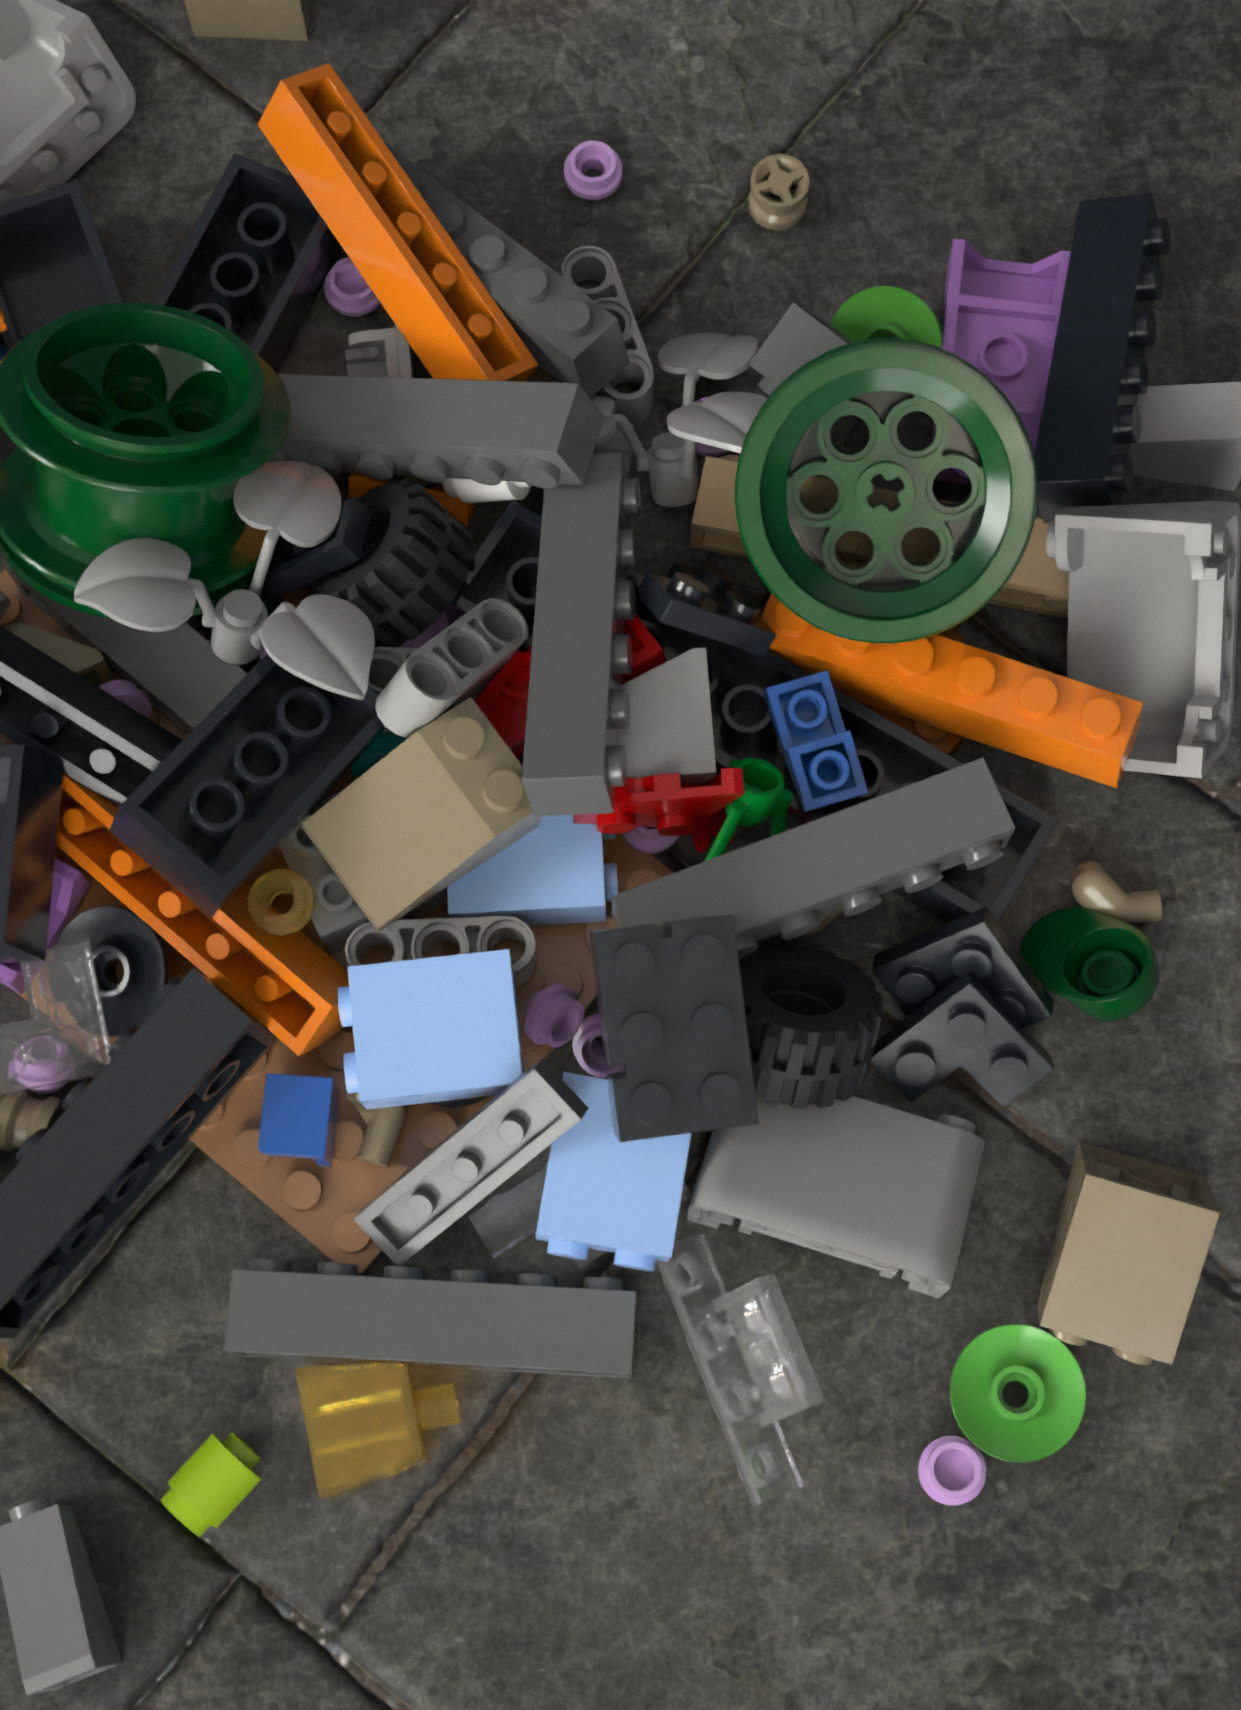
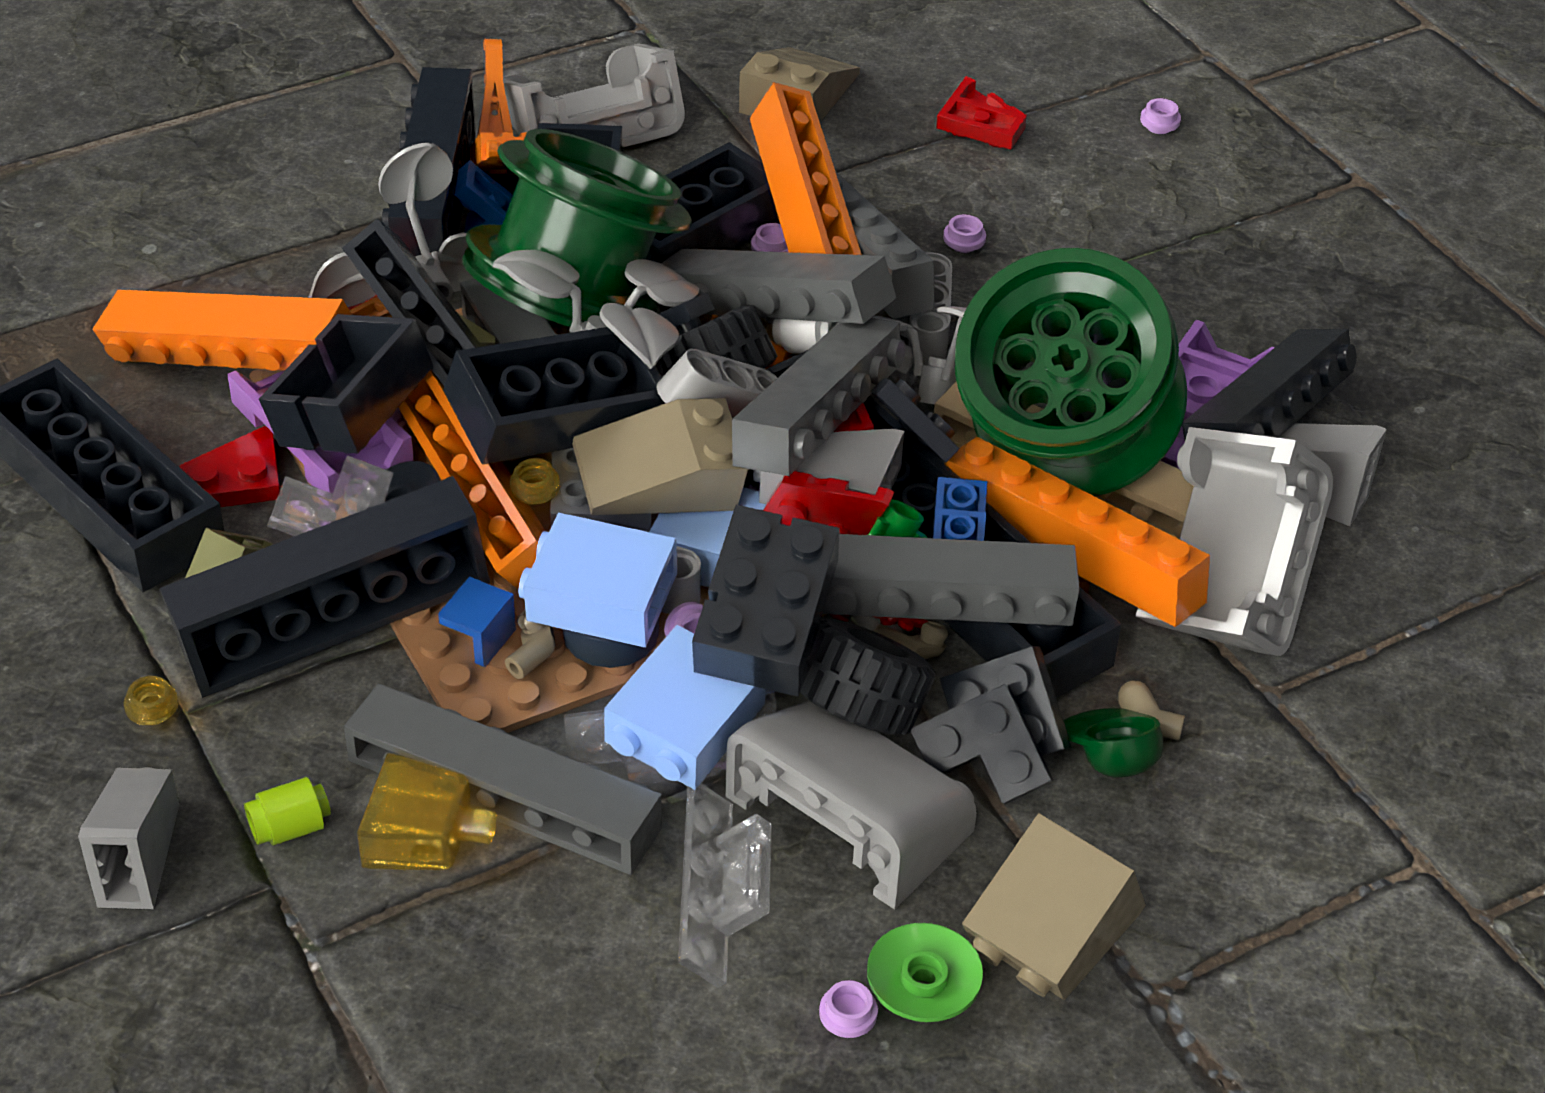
camera: 20 degrees right, 30 degrees down
(471, 1162) = (582, 662): plate -> none

